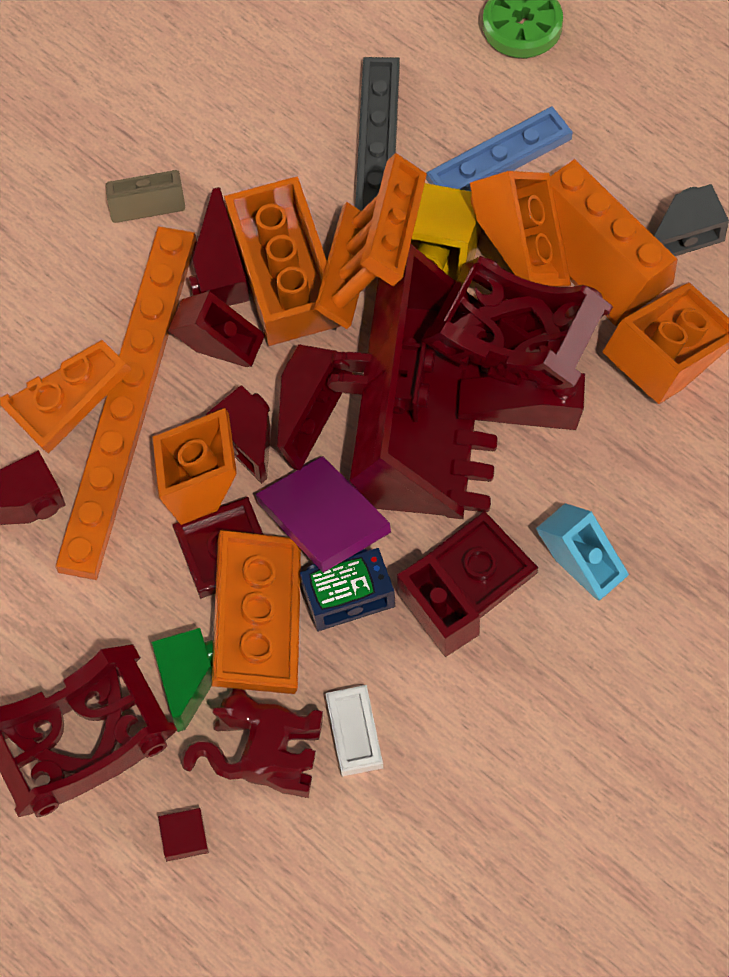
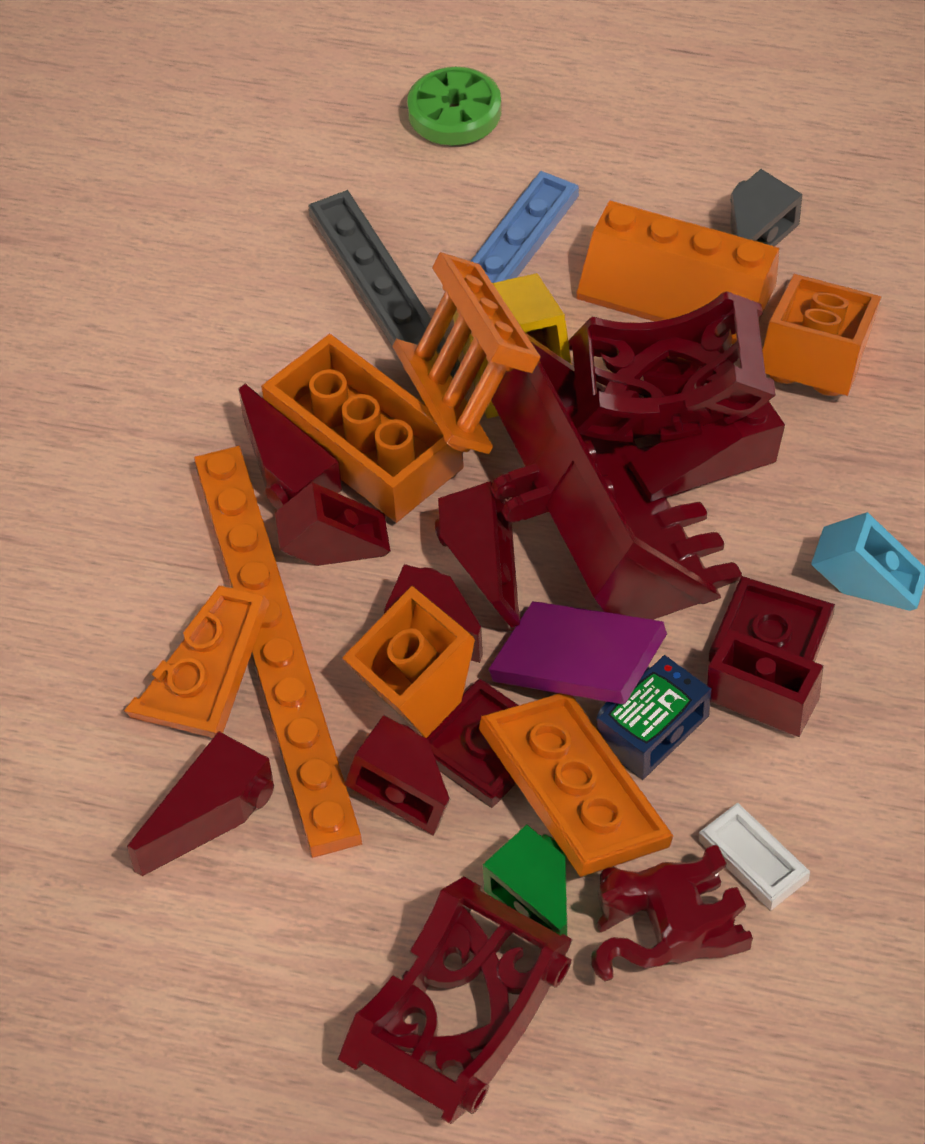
camera: 30 degrees left, 10 degrees down
(143, 541) = (400, 774): none -> dark red slope
(145, 196) = (156, 436): dark tan slope -> none
(183, 834) = (643, 1053): dark red tile -> none
(523, 224) = (590, 272): orange slope -> none

